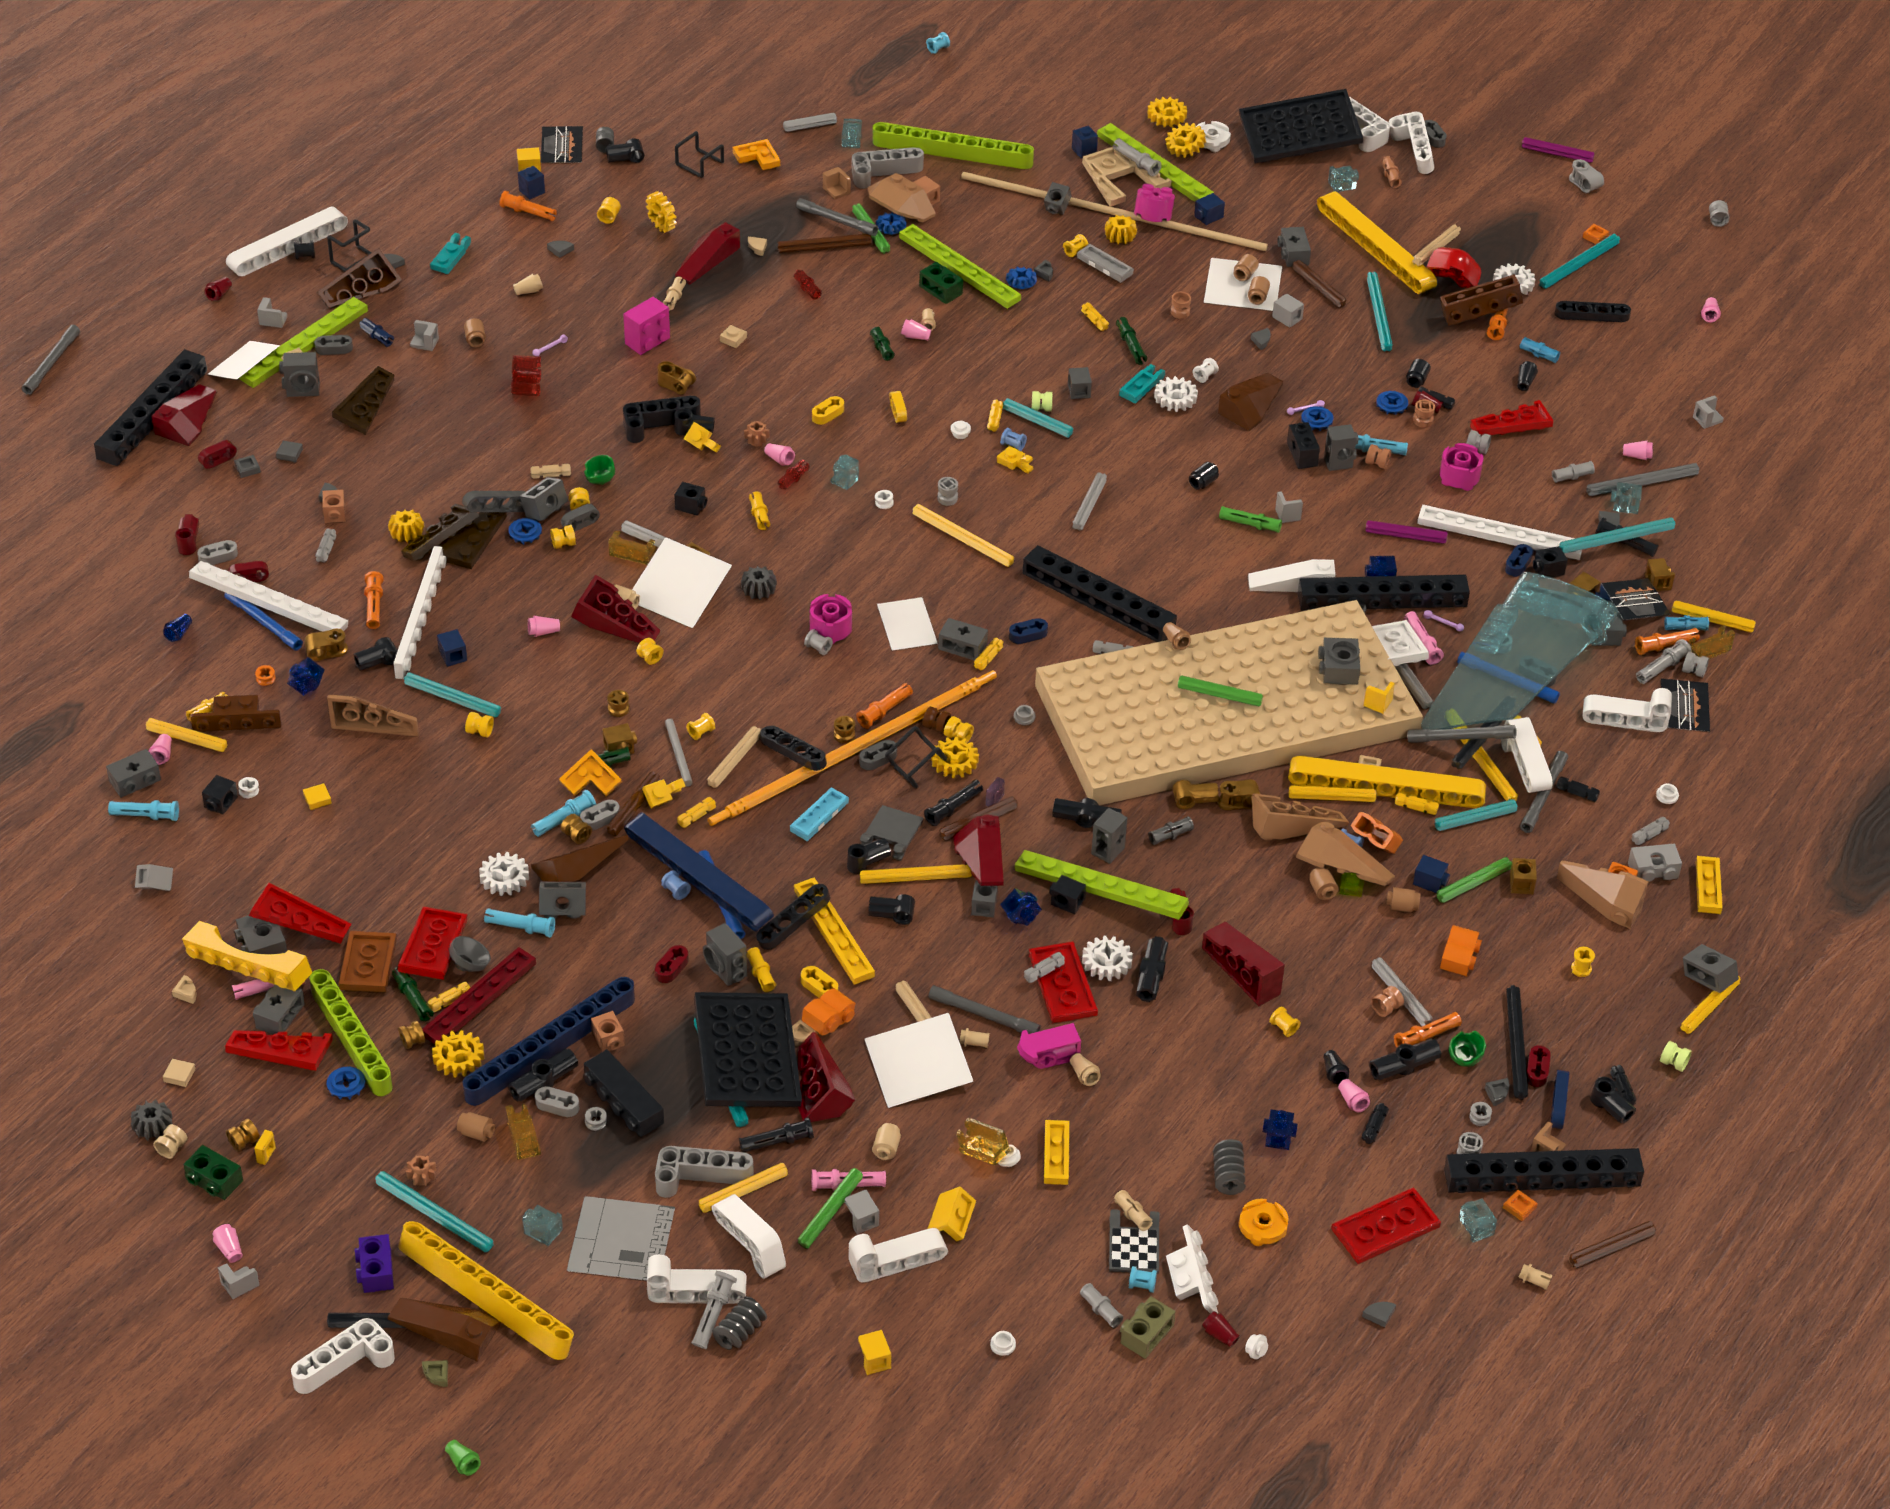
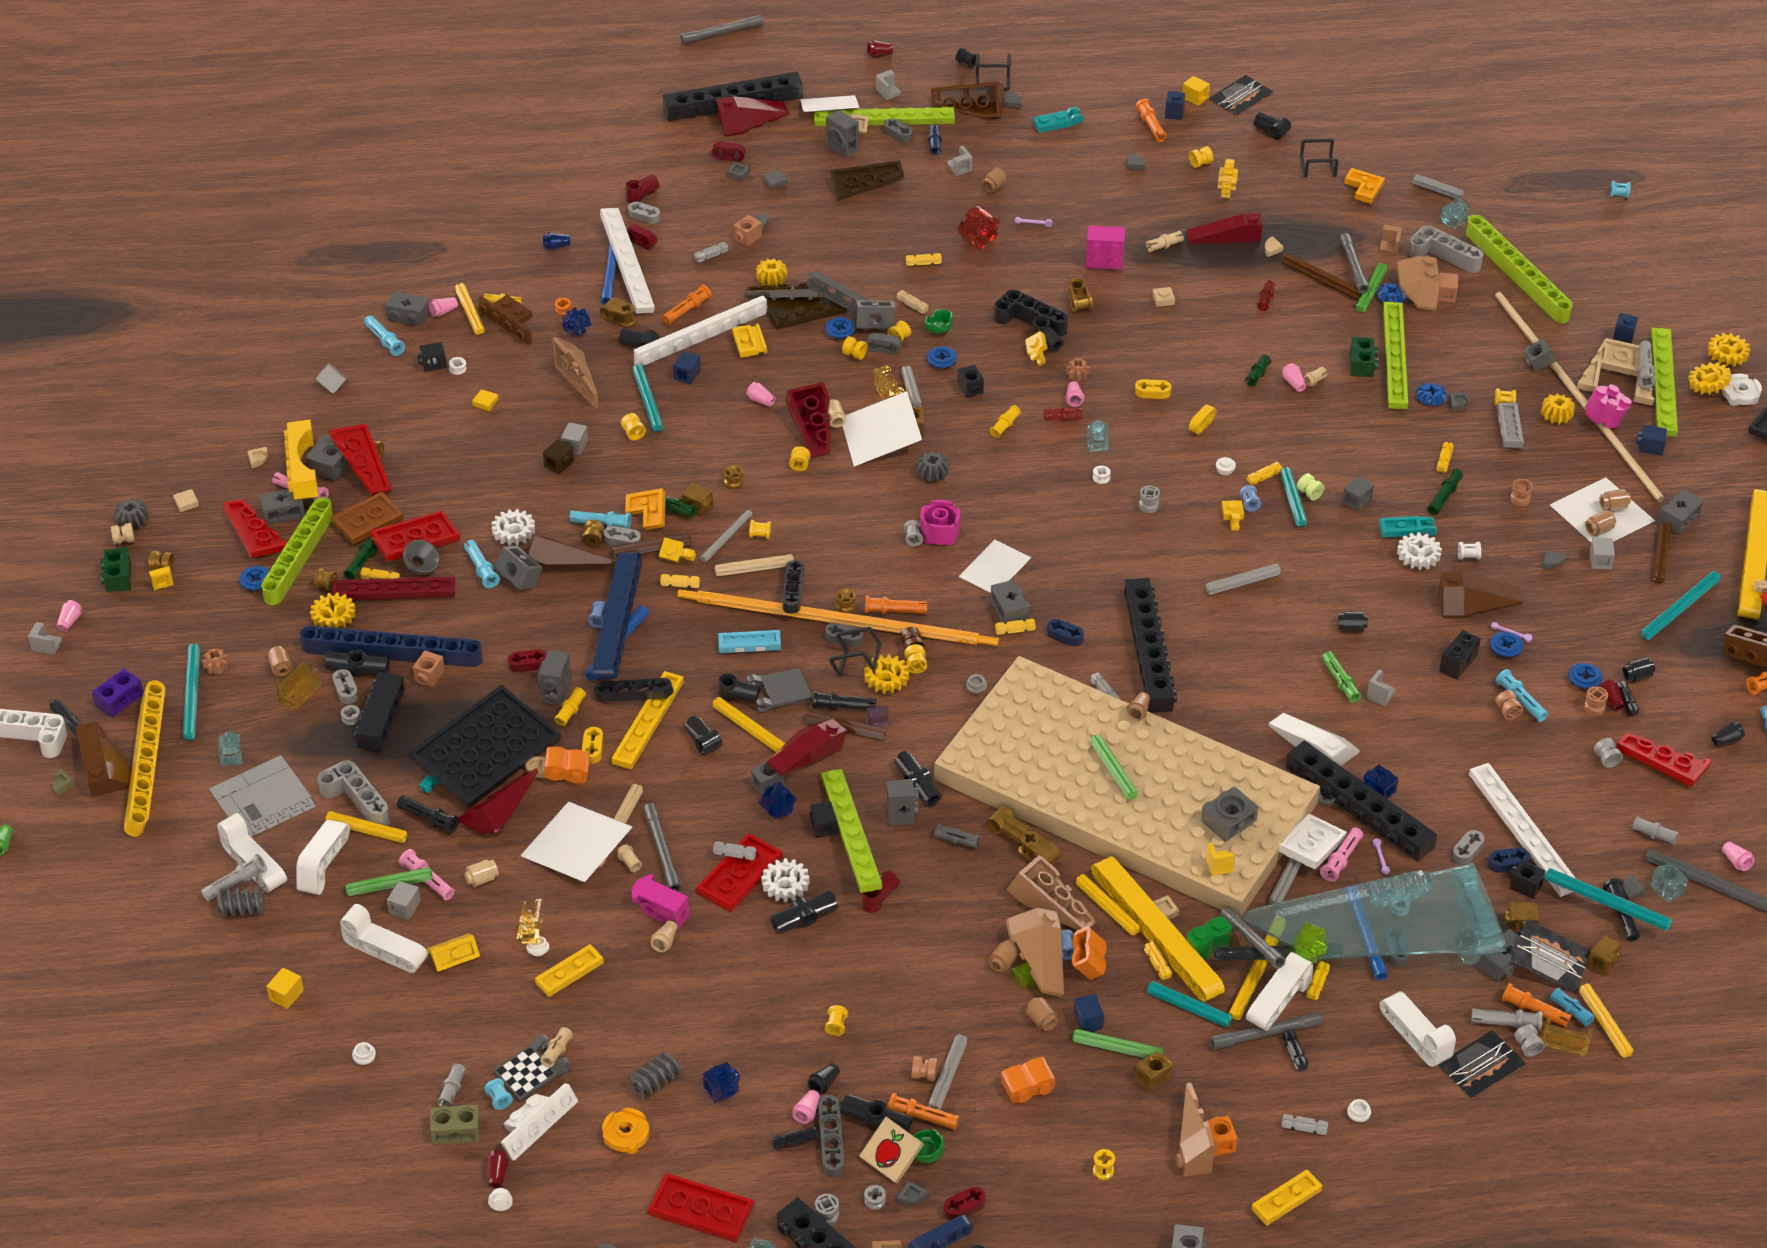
camera: 50 degrees right, 0 degrees up
(282, 242) = (949, 43): white beam -> none
(448, 769) = (576, 436): none -> light grey panel
(455, 792) = (558, 456): none -> dark brown brick
(468, 591) = (749, 340): none -> yellow plate
(509, 432) = (923, 259): none -> yellow axle
(528, 285) = (1075, 172): tan cone -> none
(604, 138) = (1270, 107): dark grey wheel -> none
(638, 492) = (947, 354): none -> blue gear
(963, 535) = (1118, 537): yellow axle -> none
(1245, 962) = (865, 959): dark red wedge -> none
(1340, 447) = (1481, 674): dark grey brick -> none
(1396, 1097) = (829, 1135): none -> dark grey beam
(1406, 531) = (1450, 774): magenta axle -> none
(1431, 754) = (1214, 934): none -> green brick
(1451, 1071) = (891, 1150): none -> tan tile
(1461, 466) = (1561, 758): dark pink brick -> none
(1480, 572) = (1464, 845): none -> light grey beam
(1506, 704) = (1311, 942): none -> clear neon green brick
(1517, 1042) = (974, 1174): black axle -> none
(1666, 866) = (1278, 1151): light grey brick -> none

